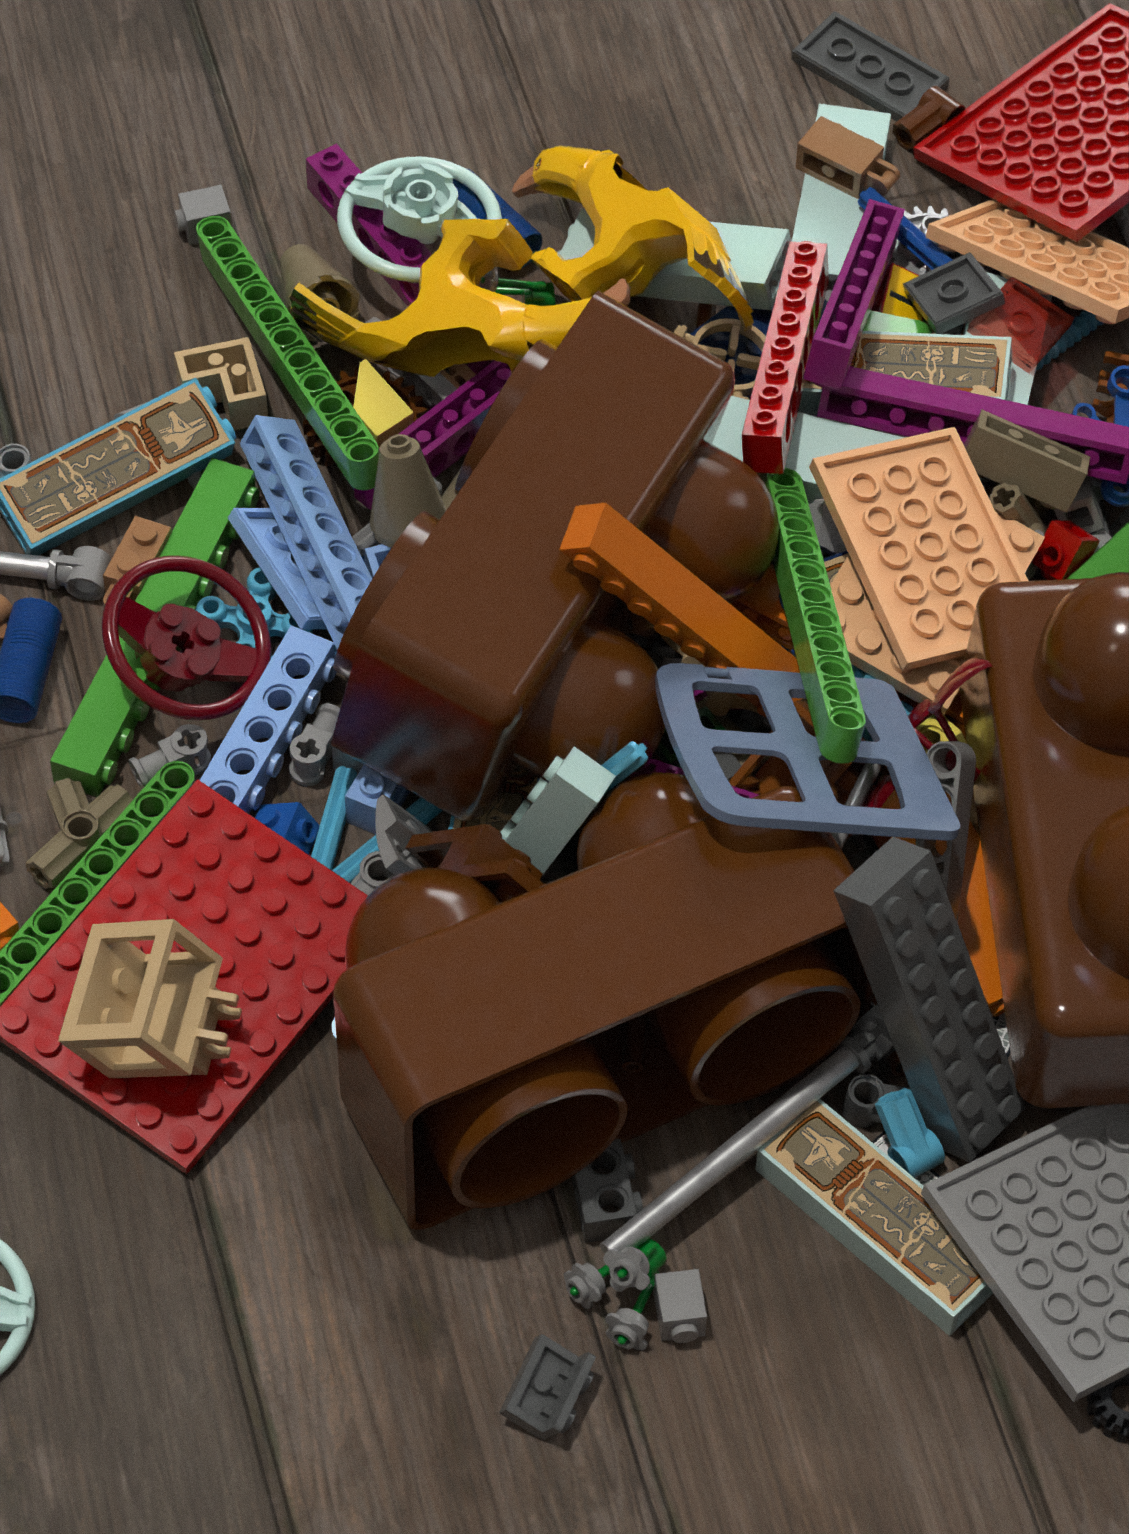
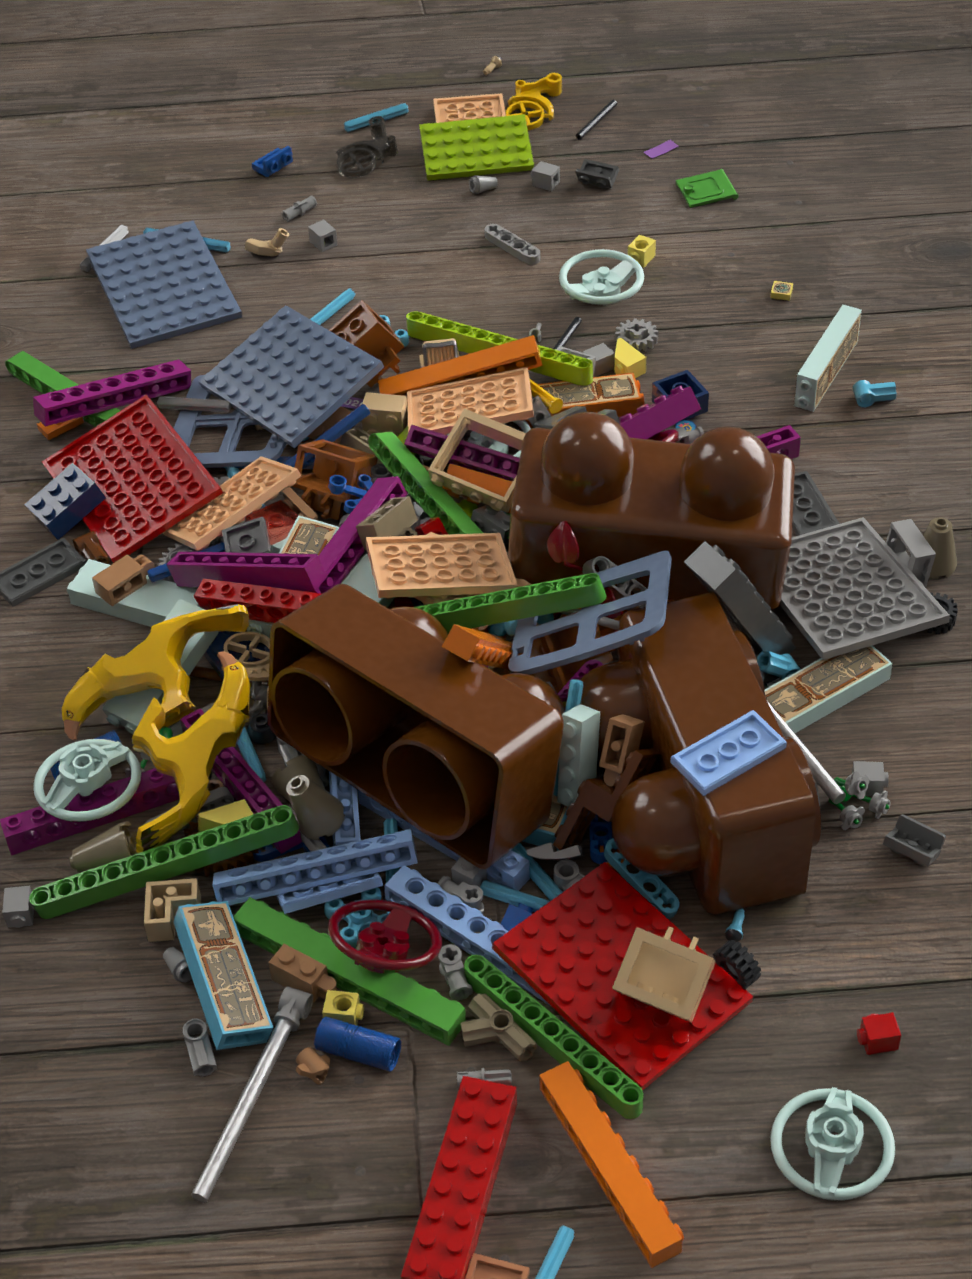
camera: 75 degrees left, 10 degrees down
(83, 618) = (339, 1000): none -> light yellow brick
(142, 1357) = (879, 1033): none -> red brick
(231, 1131) = (738, 963): none -> black tyre
(317, 1133) = (734, 931): none -> piece
(489, 969) = (728, 752): none -> light blue tile
(558, 847) = (621, 739): none -> medium nougat brick
(1011, 50) = (65, 501): none -> dark blue brick
(1074, 360) = (297, 504): none -> medium nougat plate

